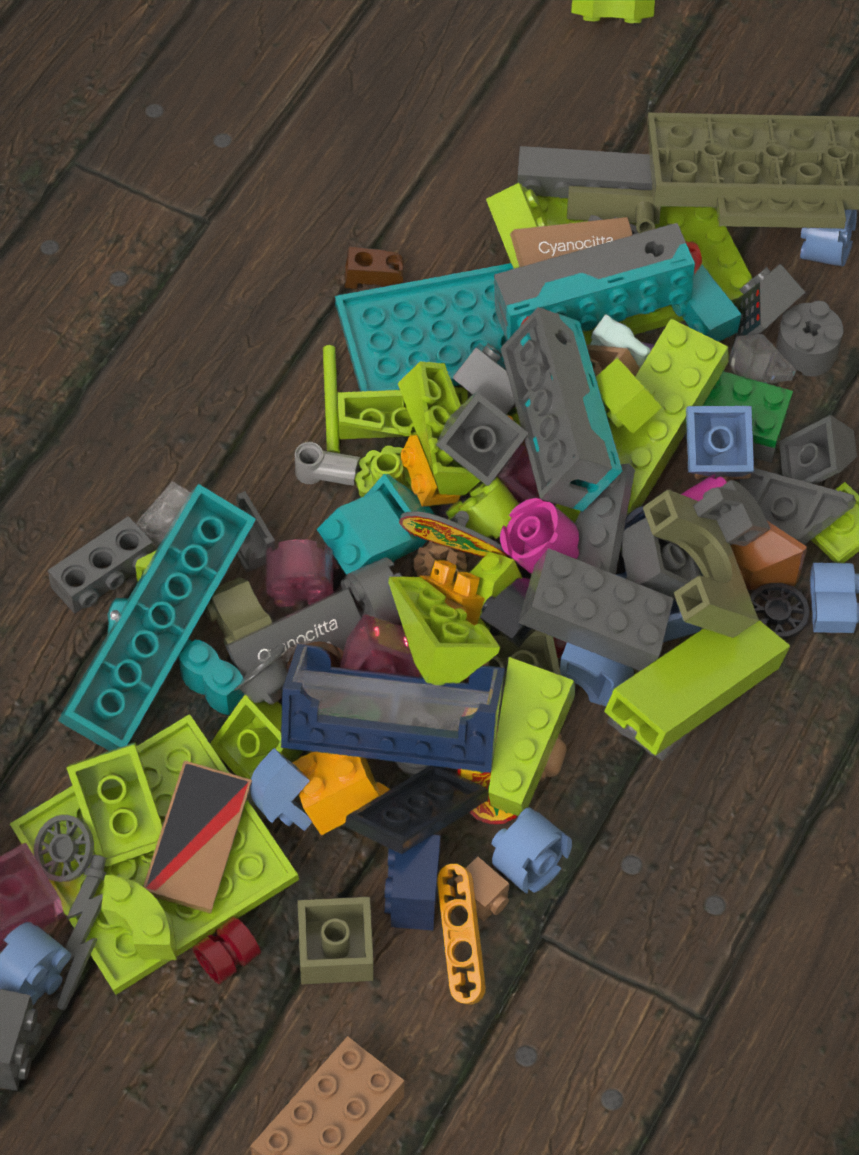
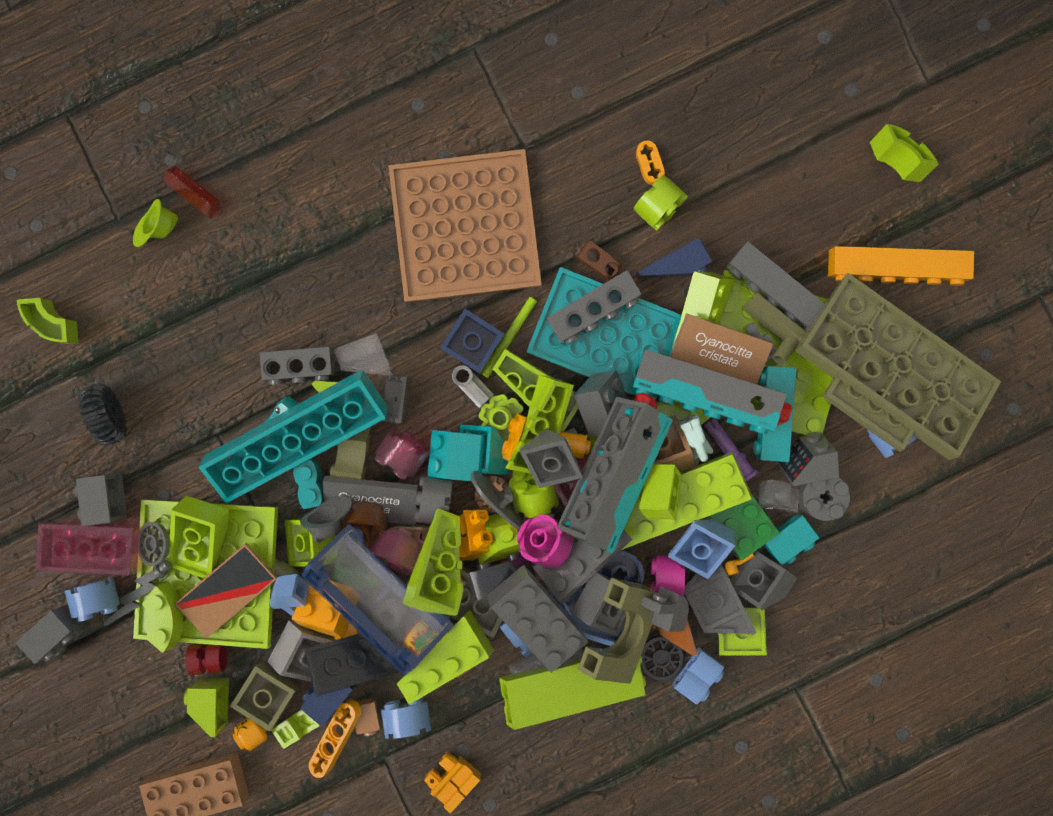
camera: 30 degrees right, 30 degrees up
(194, 323) = (464, 225): none -> medium nougat plate
(269, 990) = (209, 704): none -> lime slope
(292, 415) = (472, 341): none -> dark blue brick
(342, 865) = (288, 654): none -> light grey slope
(348, 1004) = (249, 734): none -> light orange head
(354, 155) = (644, 164): none -> light orange beam
(395, 173) = (660, 202): none -> lime brick
(402, 963) = (293, 728): none -> lime slope
(404, 304) = (622, 284): none -> dark grey brick
(462, 223) = (679, 263): none -> dark blue slope
(650, 899) = (454, 783): none -> light orange hips
(701, 89) = (901, 264): none -> light orange brick
(773, 465) = (731, 566): none -> light orange hand
(812, 398) = (792, 539): none -> teal brick

